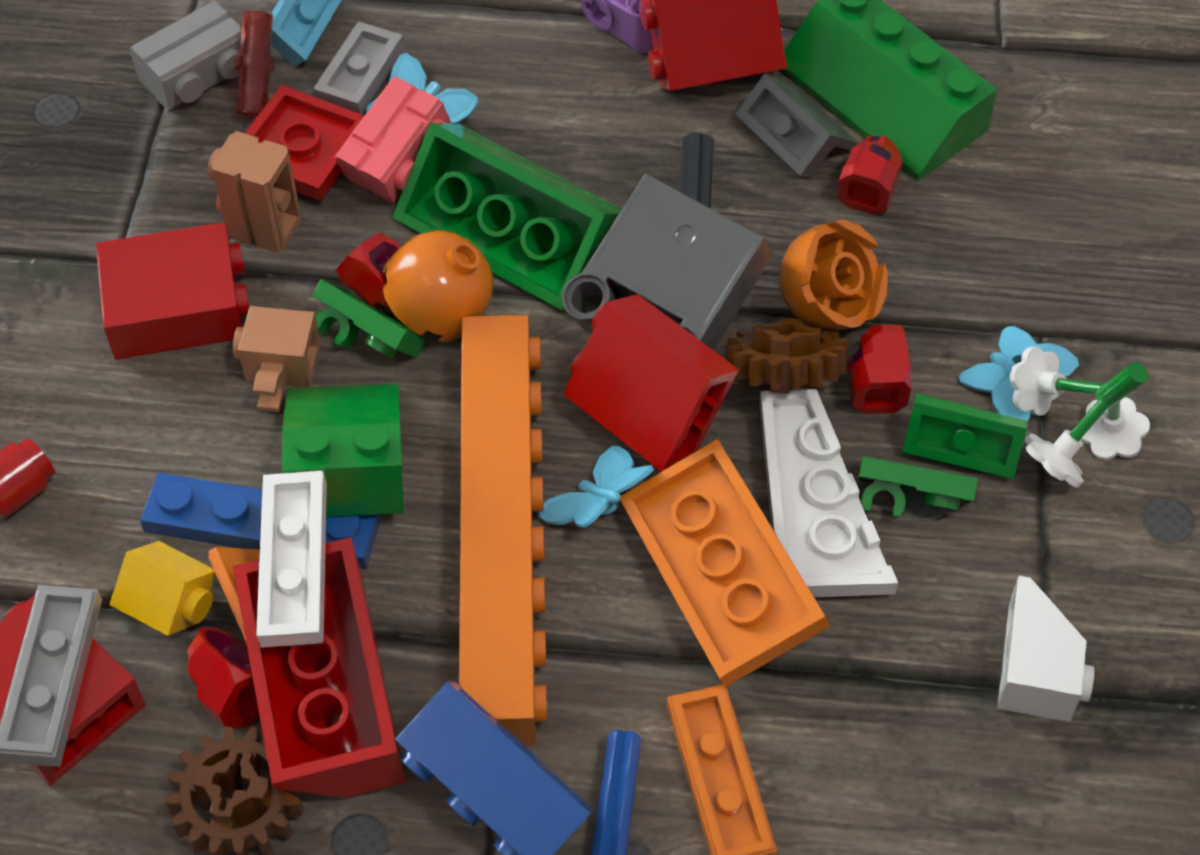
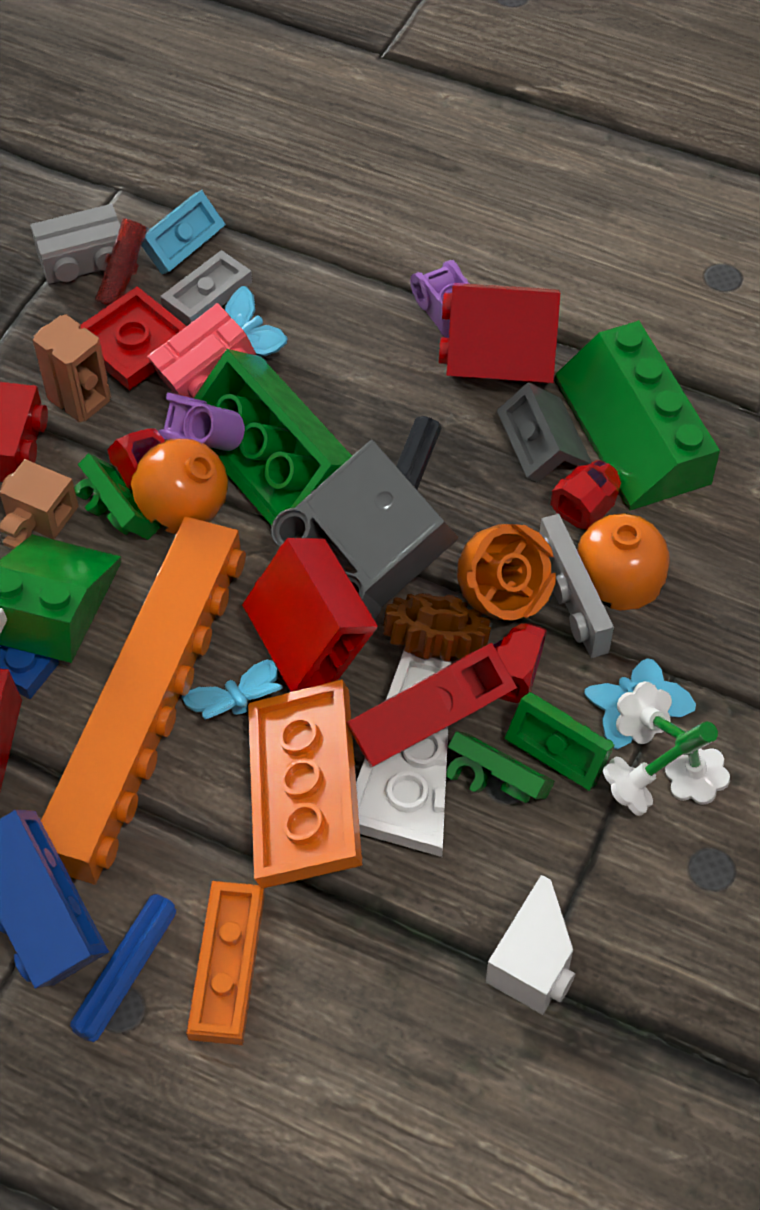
camera: 20 degrees right, 0 degrees up
(423, 210) = (202, 422): none -> medium lavender piece
(830, 433) = (431, 704): none -> red slope
(914, 279) = (575, 588): none -> light grey plate
(939, 234) = (625, 560): none -> orange cylinder

